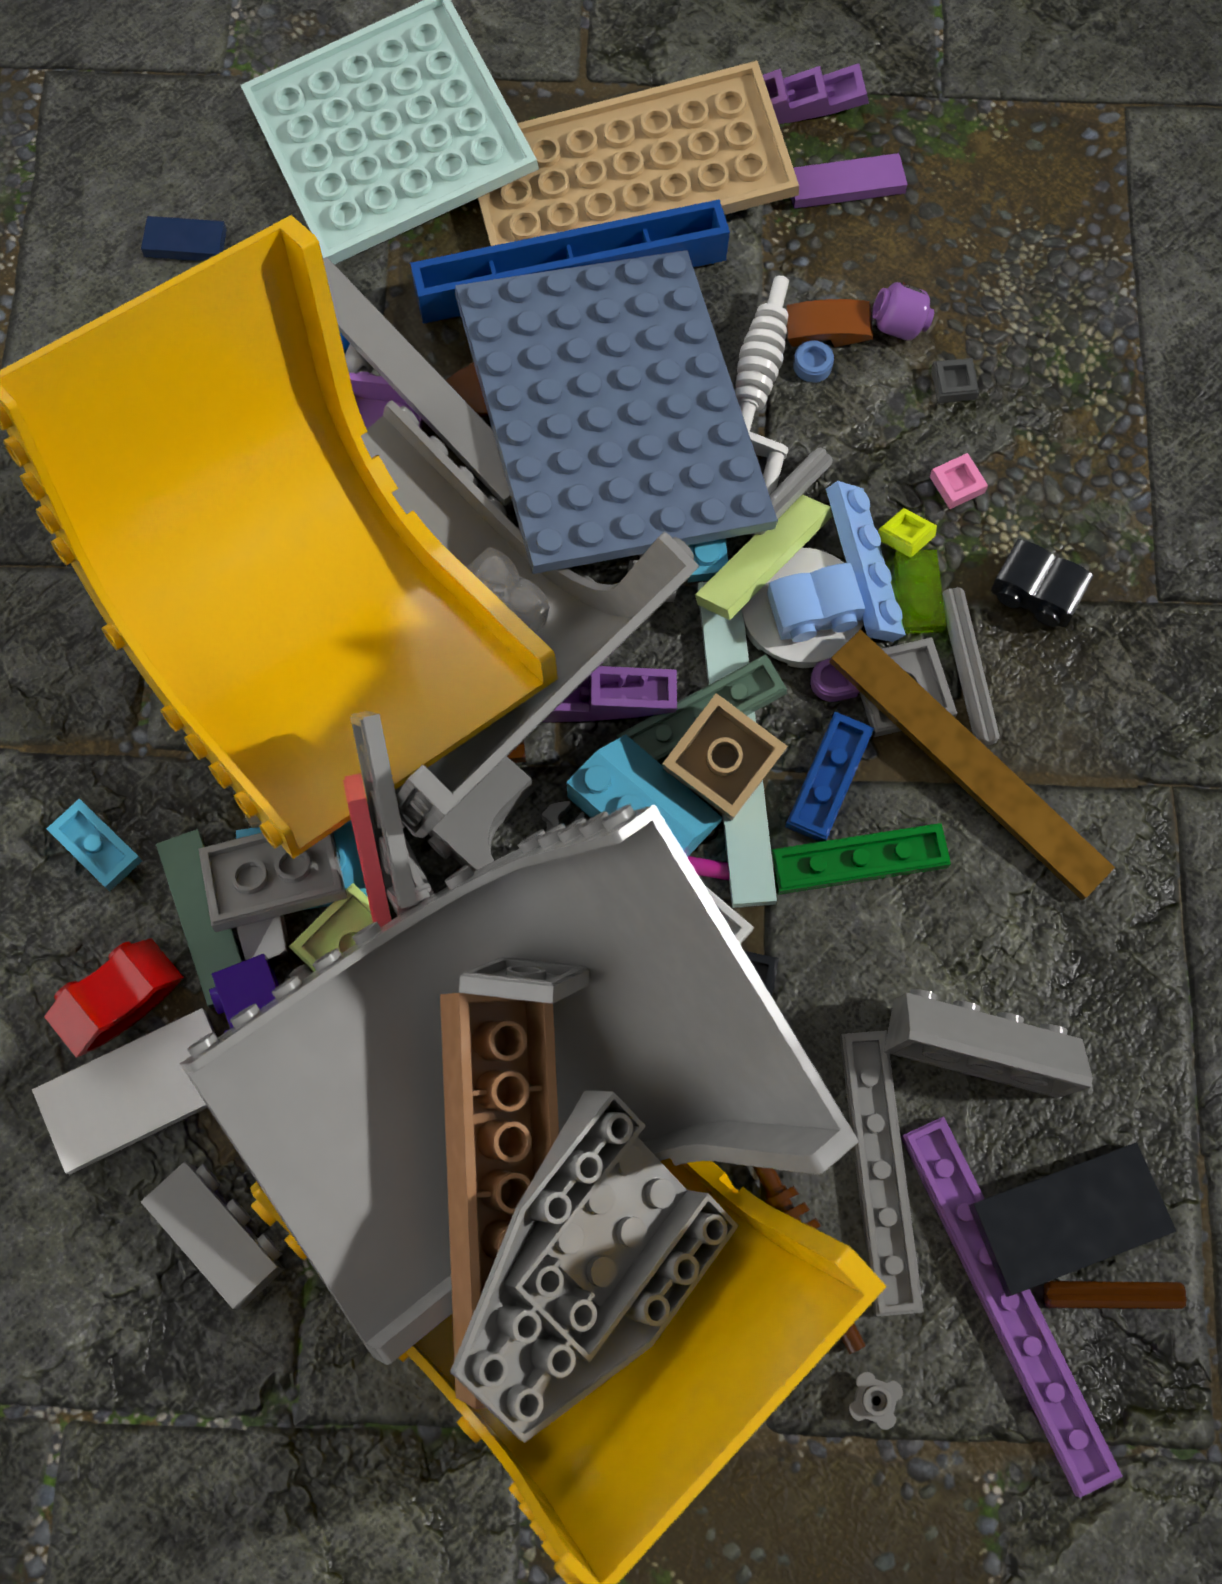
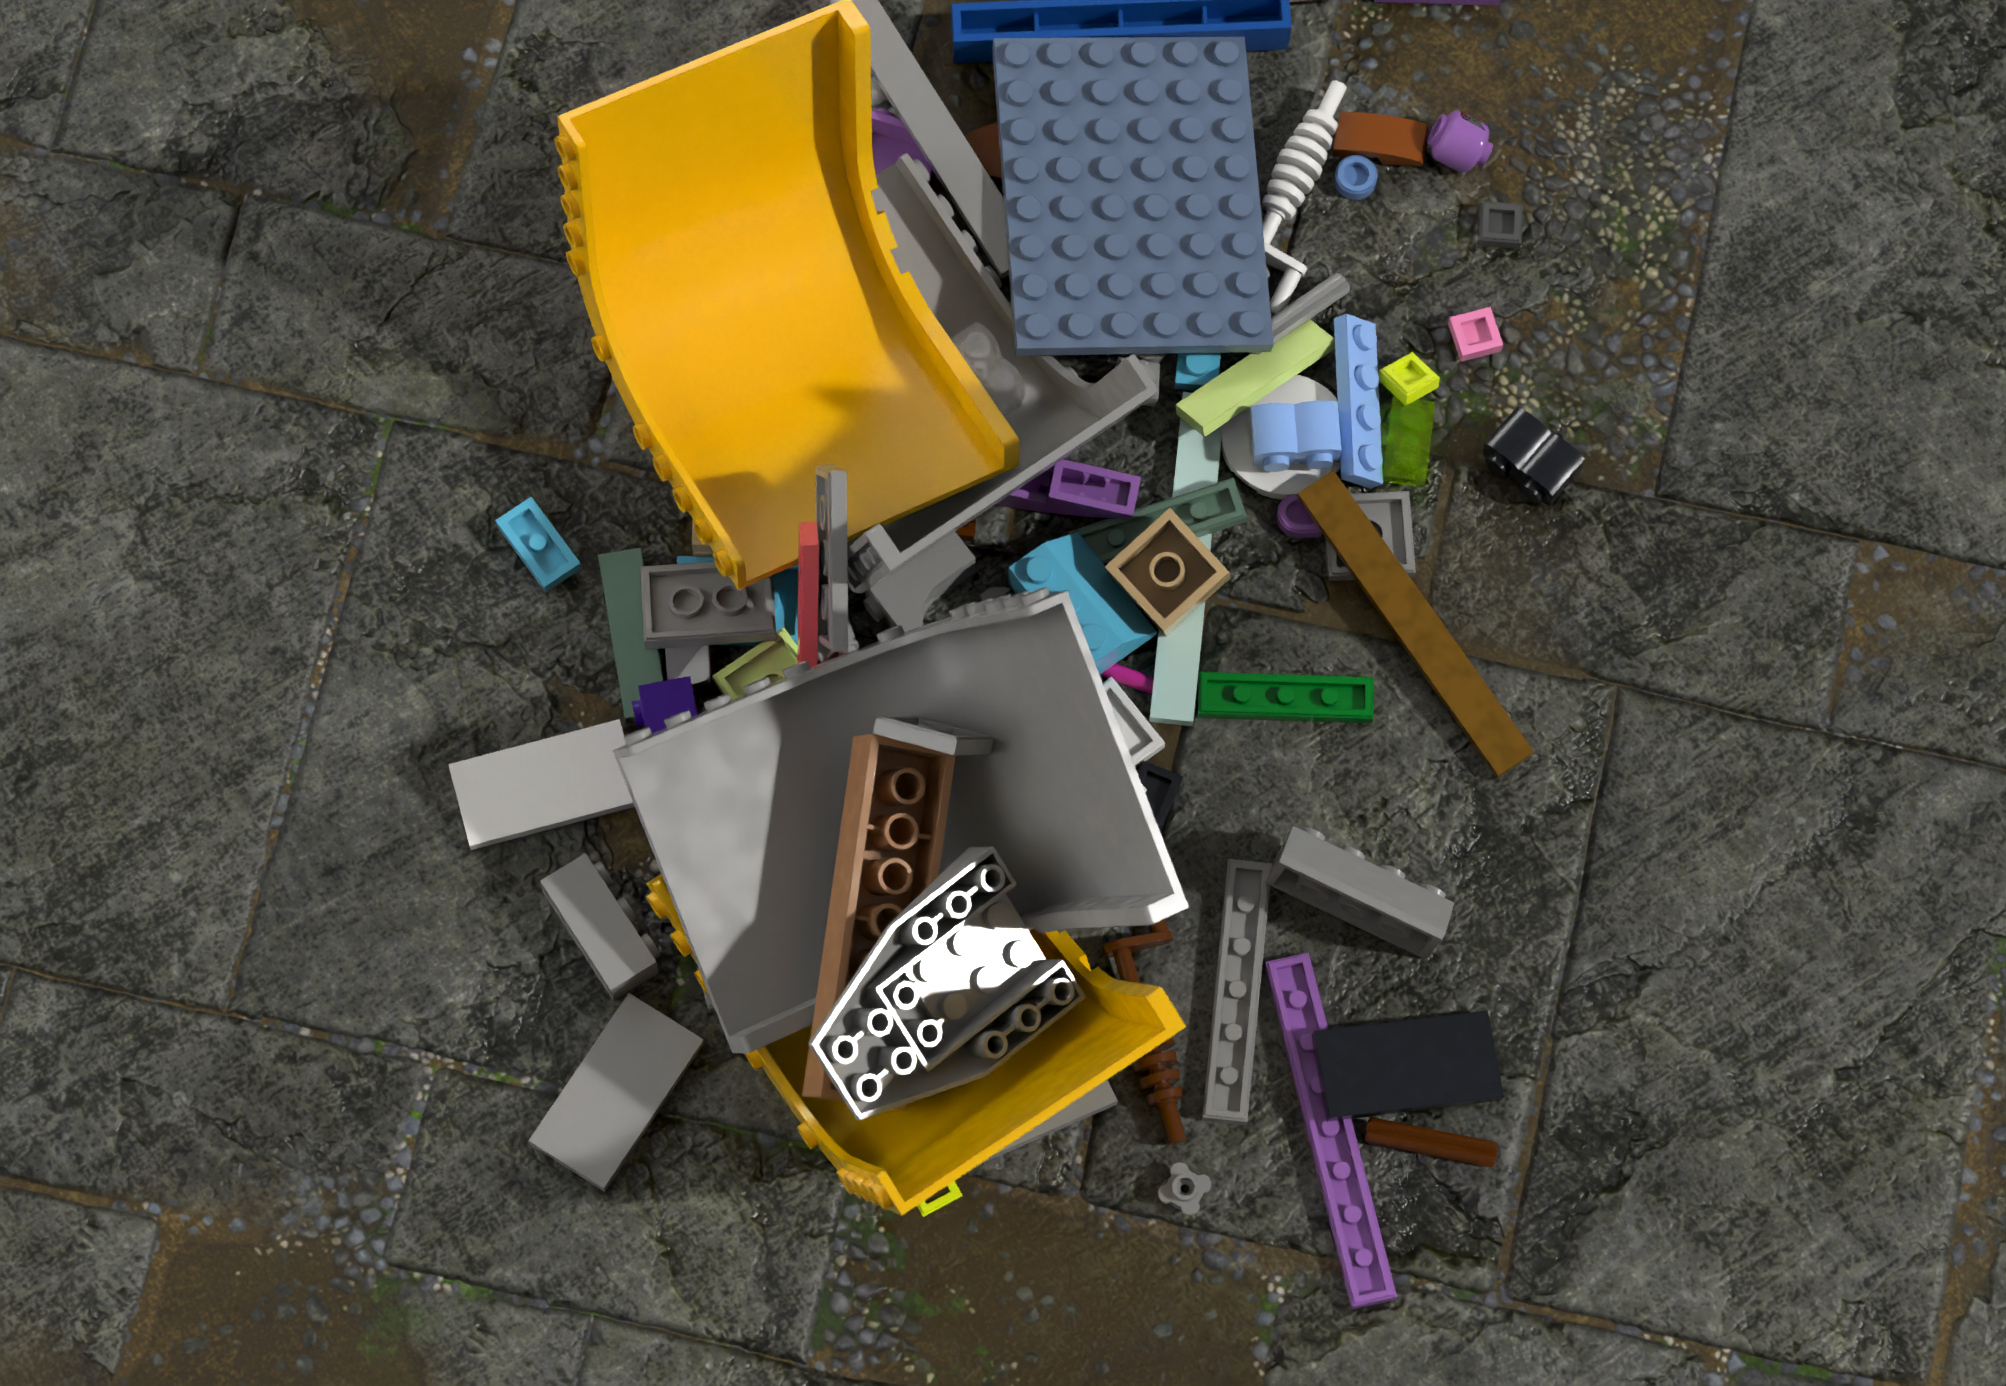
camera: 10 degrees right, 0 degrees up
(112, 996) = (538, 692): red brick -> none
(258, 1415) = (616, 1092): none -> light grey tile
(829, 777) = (1273, 612): blue tile -> none
(970, 666) = (1440, 528): light grey axle -> none

